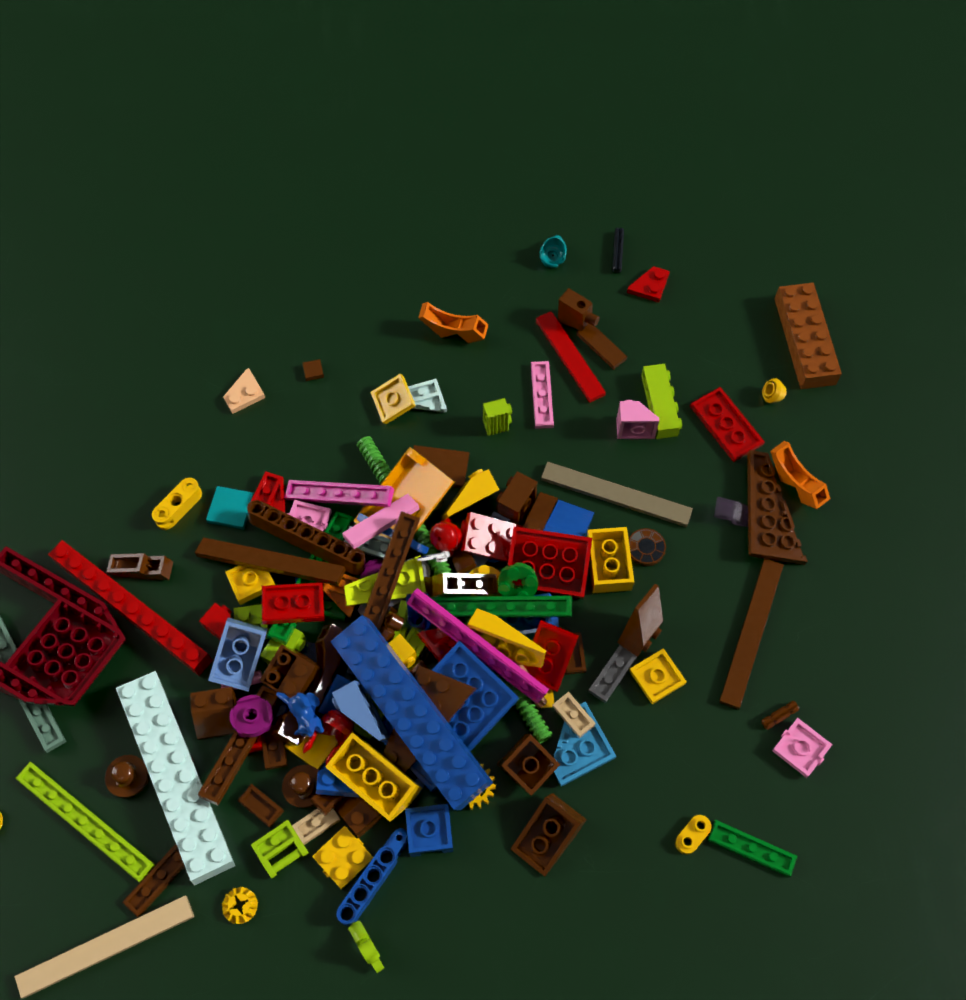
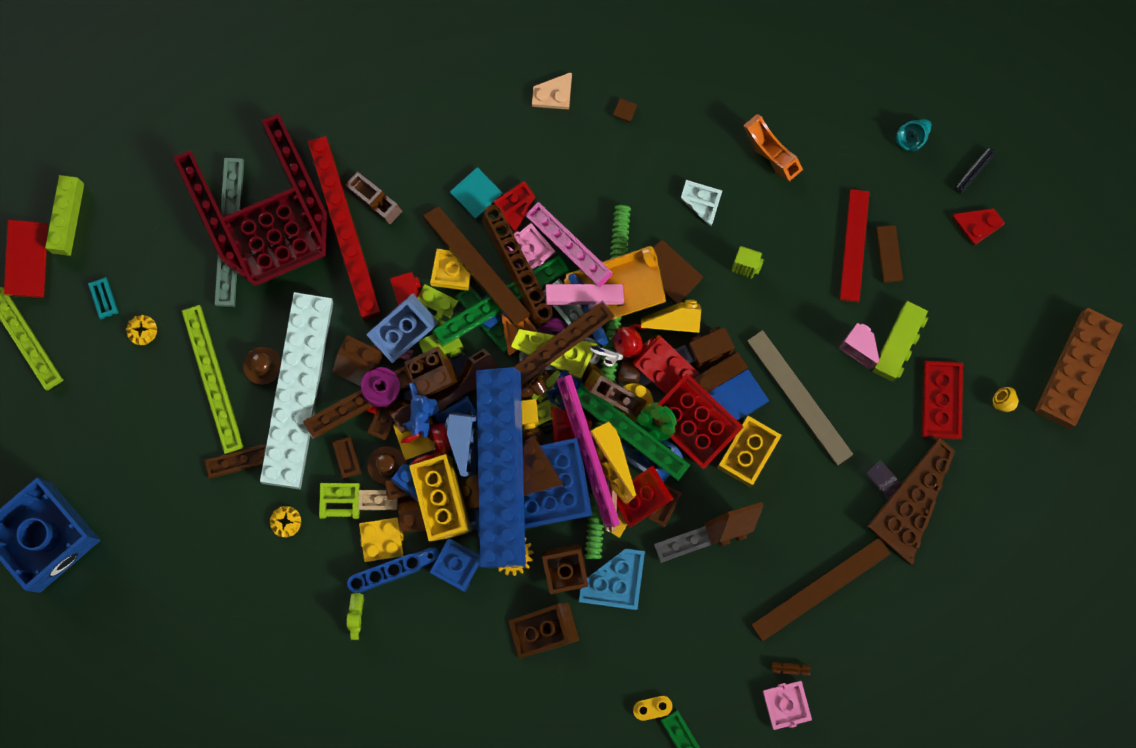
camera: 35 degrees right, 15 degrees up
(103, 947) = (174, 483): tan tile -> none
(167, 514) = (446, 162): yellow piece -> none
(292, 603) = (469, 316): red tile -> none
(393, 399) = (672, 185): yellow plate -> none
(542, 395) = (803, 265): bright pink tile -> none
(573, 715) = (626, 556): tan plate -> none
(576, 311) = (888, 209): reddish brown torso -> none
(647, 547) = (789, 460): tile -> none
(657, 676) = (717, 571): yellow plate -> none
(790, 471) = (961, 485): orange arch -> none

